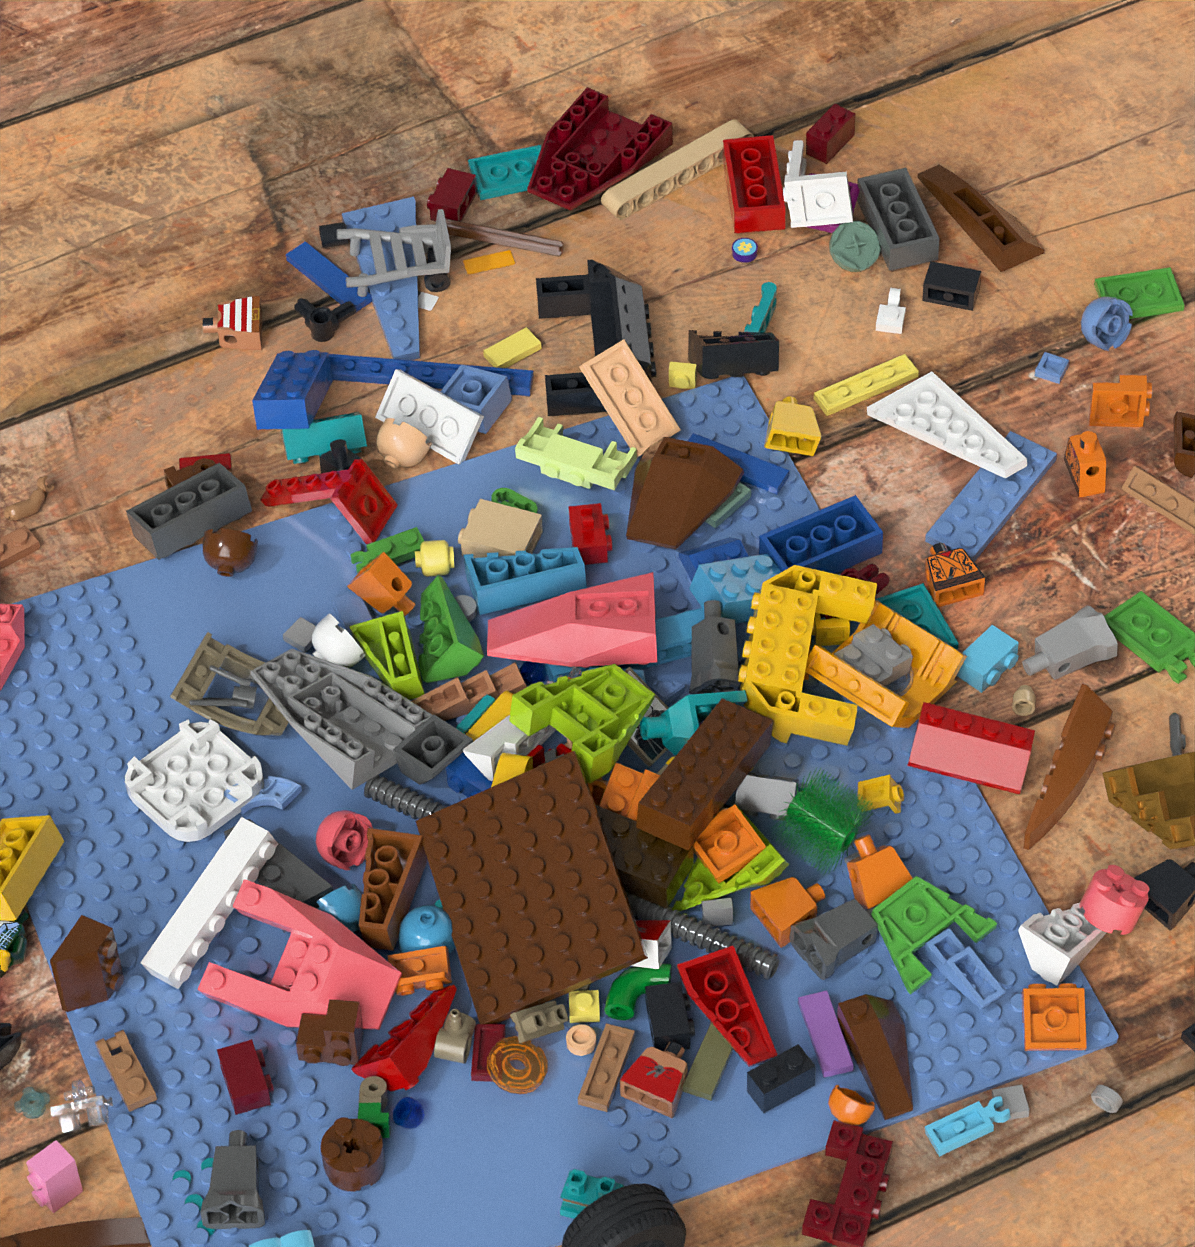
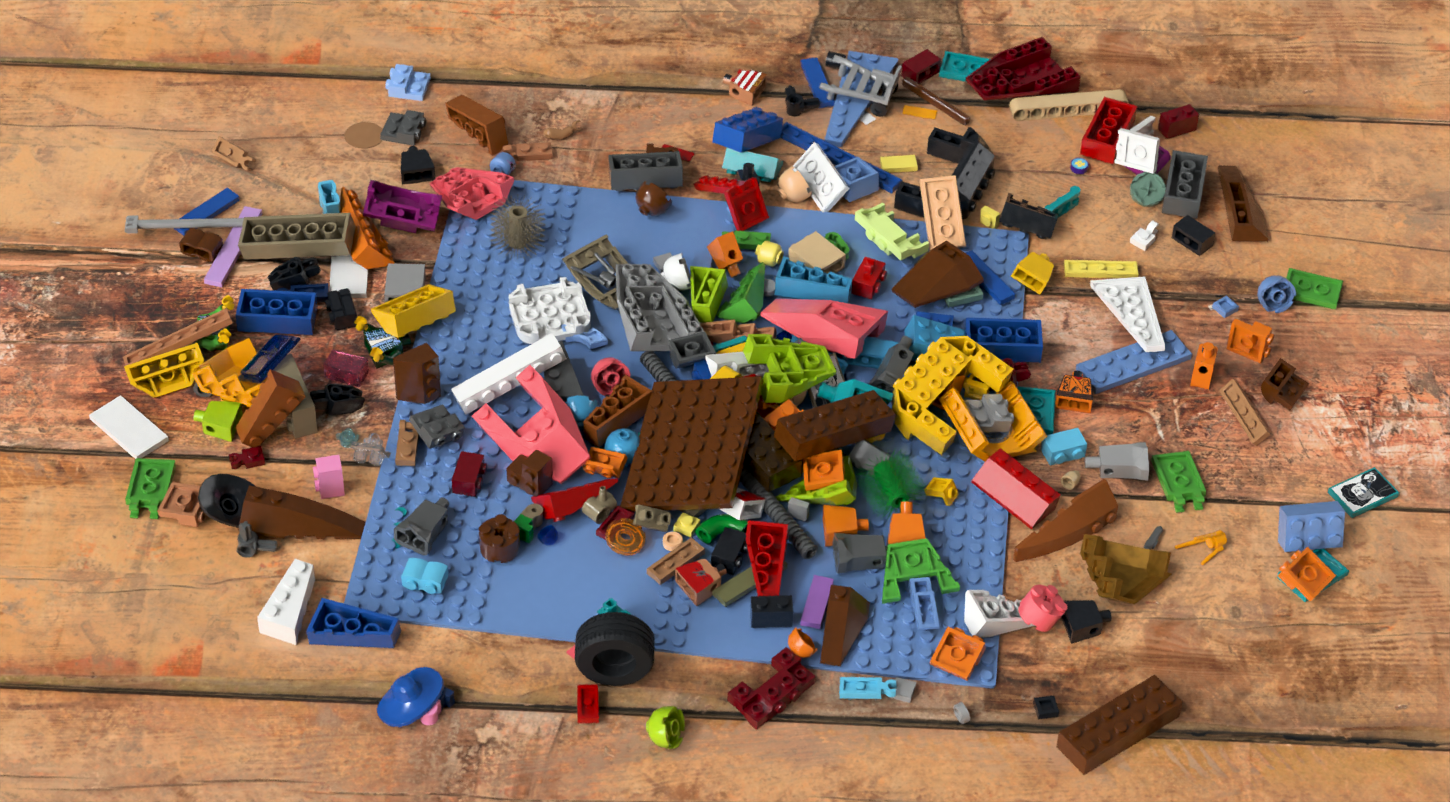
camera: 25 degrees right, 5 degrees down
(74, 676) = (517, 227): none -> dark tan piece
(155, 1027) = (437, 426): none -> dark grey plate

